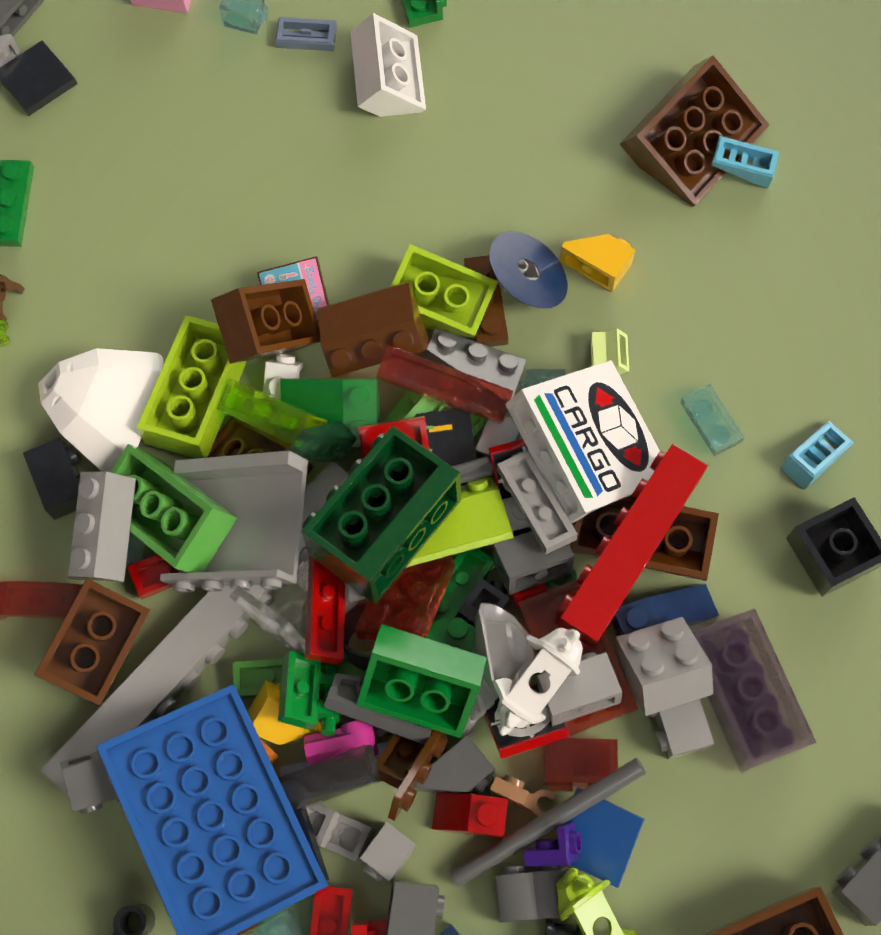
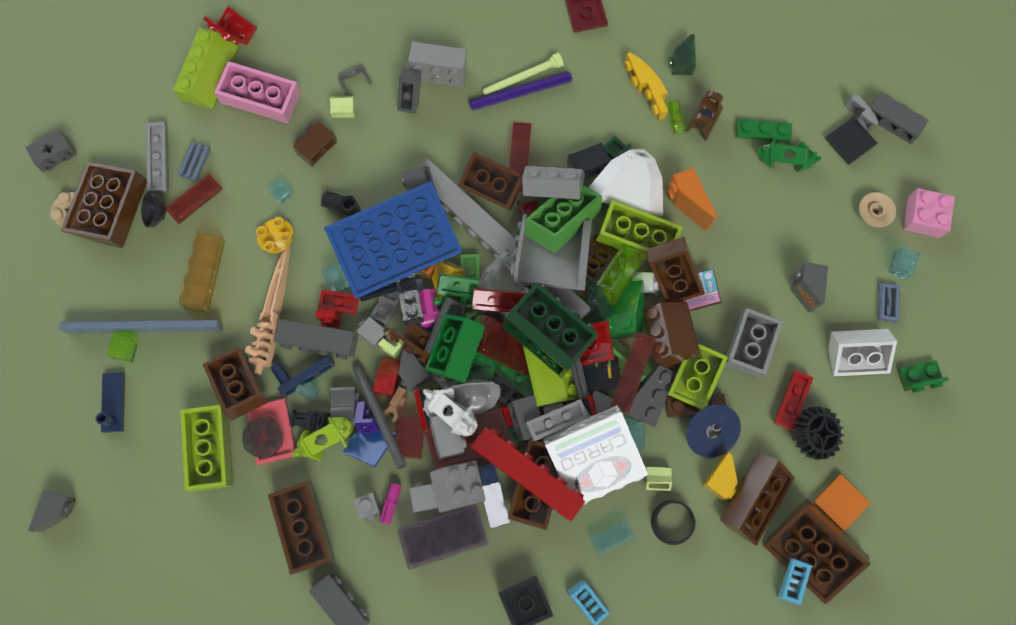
camera: 85 degrees right, 5 degrees up
(35, 429) = (615, 147): none -> dark green bracket
(54, 185) = (775, 153): none -> green piece
(134, 304) = (690, 198): none -> orange slope
(151, 34) = (882, 205): none -> tan dish
(285, 131) = (810, 285): none -> dark grey slope
(381, 213) = (753, 343): none -> light grey brick
(414, 819) = (390, 348): none -> yellowish green panel
(468, 161) = (793, 400): none -> red plate
(519, 126) = (813, 444): none -> black gear
(618, 101) = (841, 502): none -> orange tile
(624, 211) = (757, 498): none -> reddish brown slope
(667, 356) = (655, 527): none -> black tyre
(698, 792) = (390, 504): none -> dark pink axle
(712, 831) = (367, 507): none -> light grey brick

